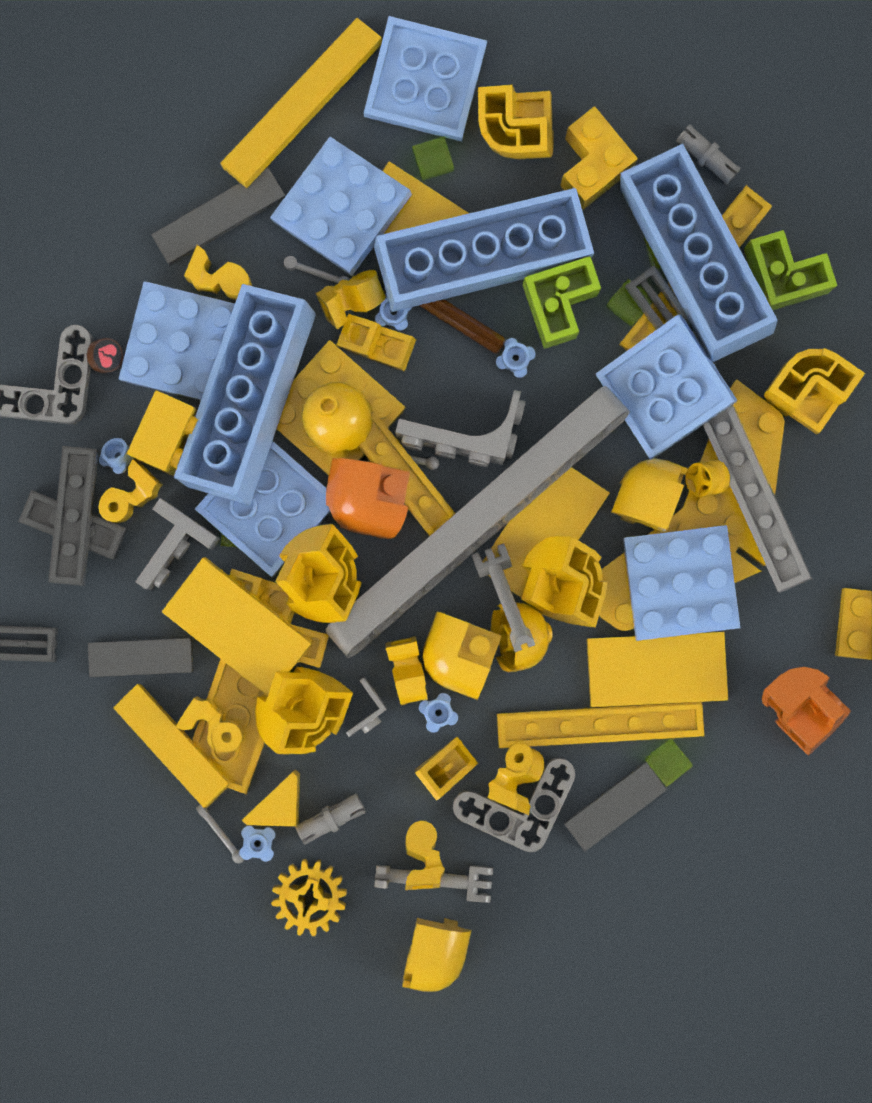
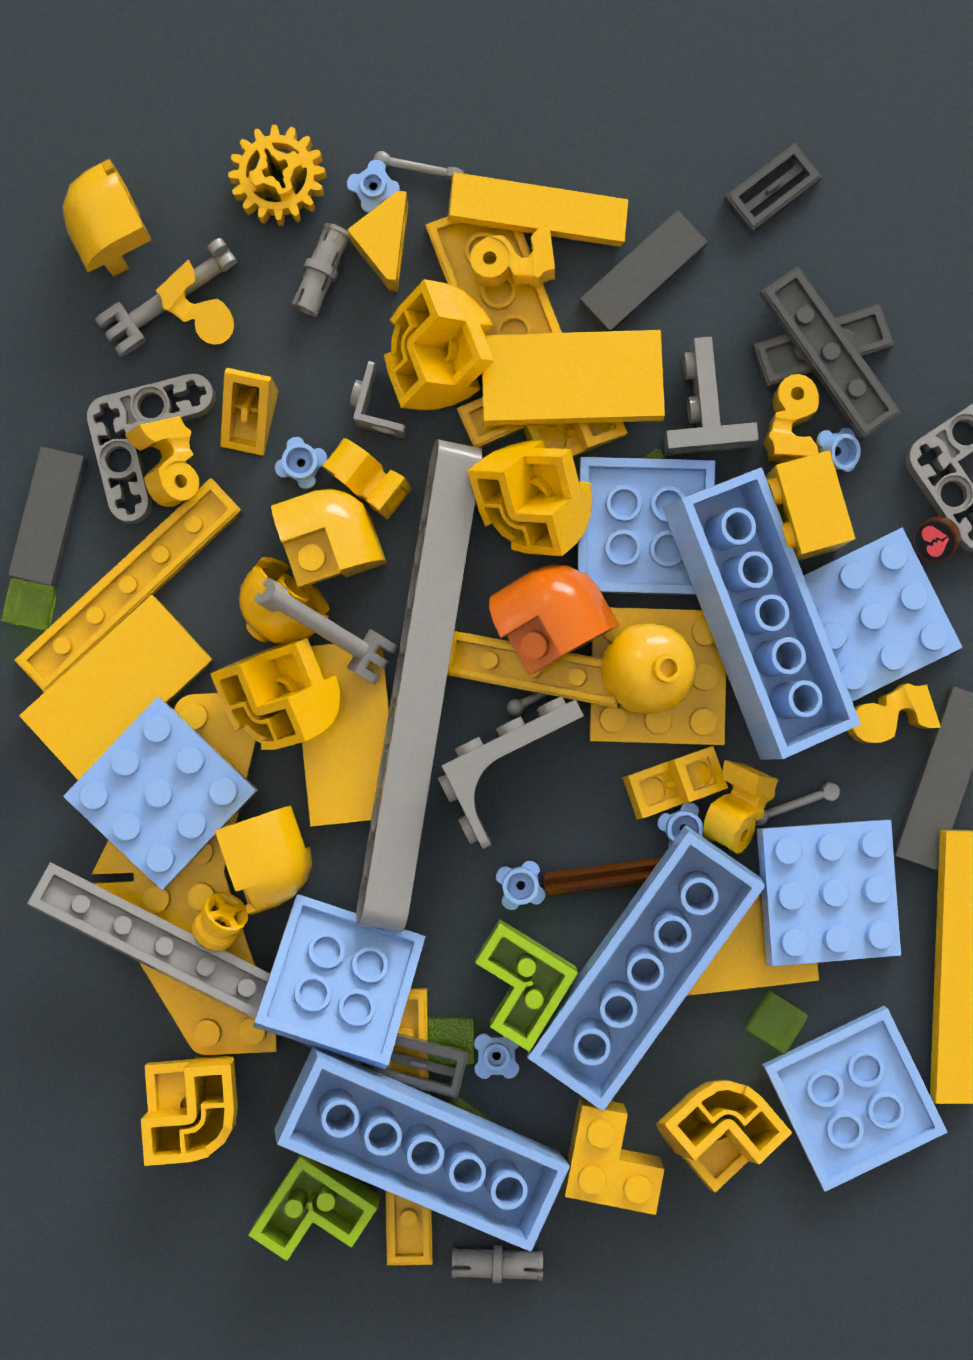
camera: 145 degrees right, 0 degrees up
(621, 271) = (487, 1065): none -> light blue plate

